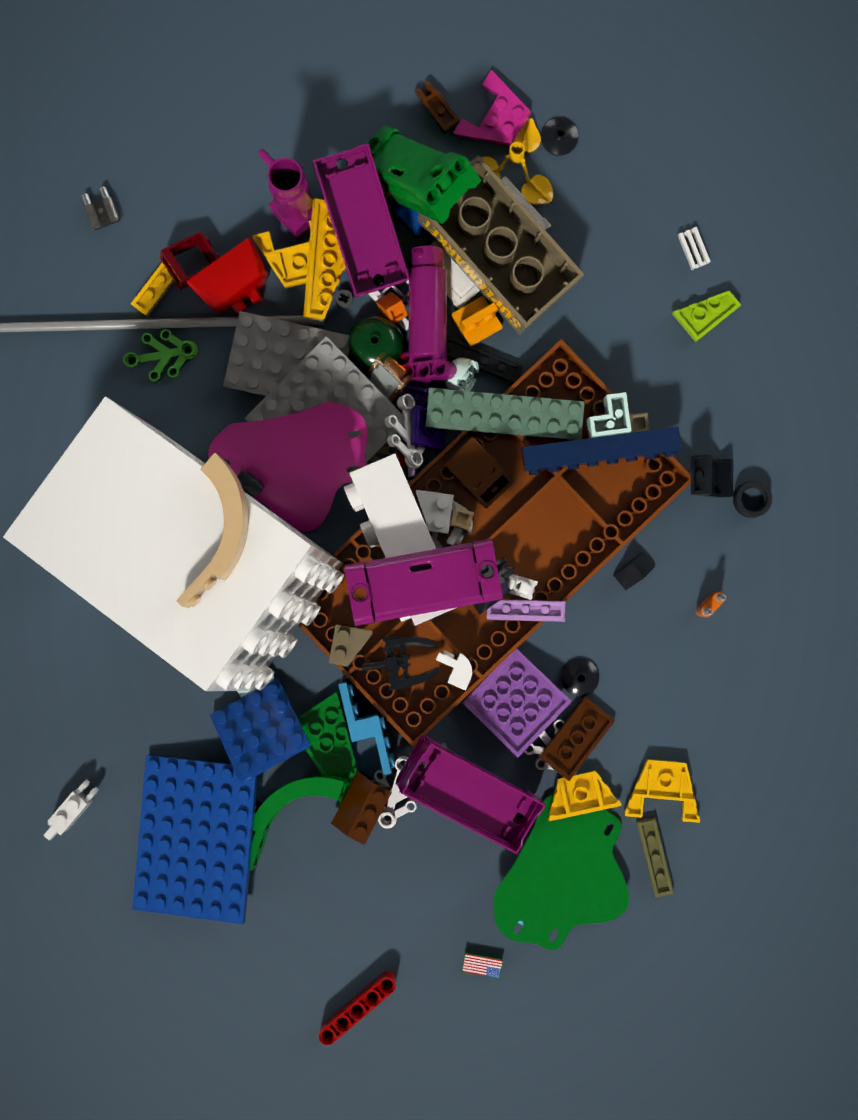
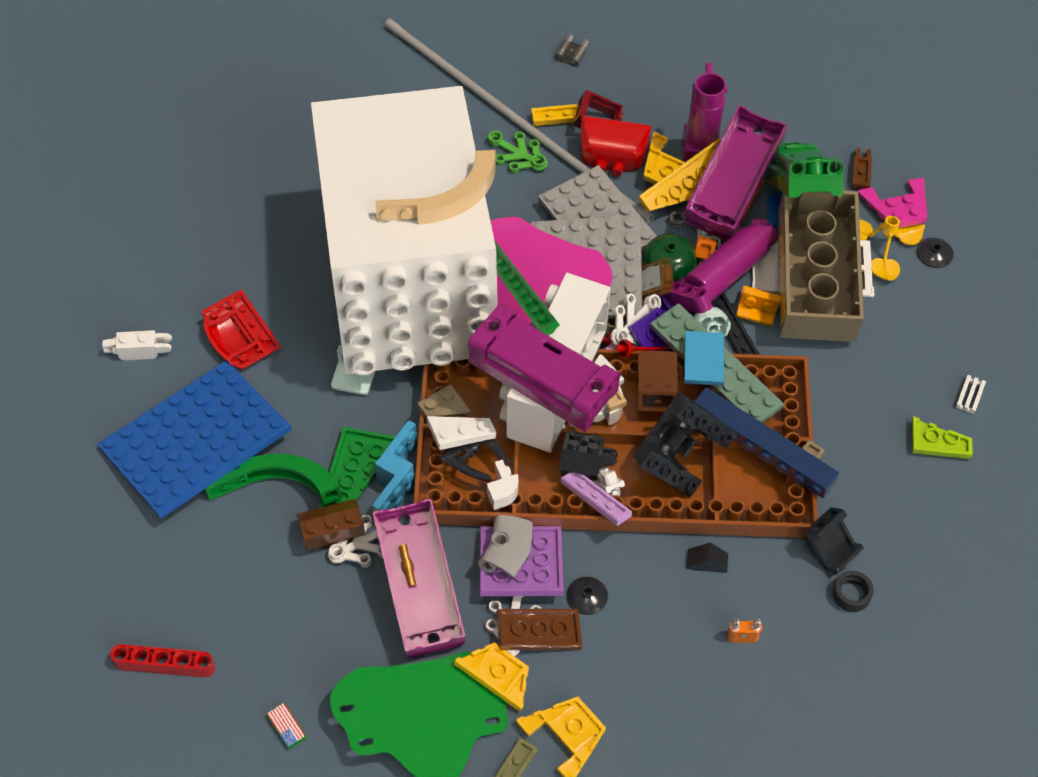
camera: 45 degrees right, 30 degrees down
(129, 726) = (238, 331): none -> red slope
(260, 730) = (320, 408): blue plate -> none
(321, 513) = (524, 293): none -> green plate
(384, 658) = (460, 431): none -> white wing
(429, 467) = (626, 348): none -> red sword
(457, 797) = (407, 565): none -> pearl gold bar
(496, 421) = (704, 358): none -> dark azure tile
(513, 714) = (508, 545): none -> light grey panel
(539, 510) = (673, 436): none -> black piece
(615, 420) = (795, 427): light aqua brick -> none

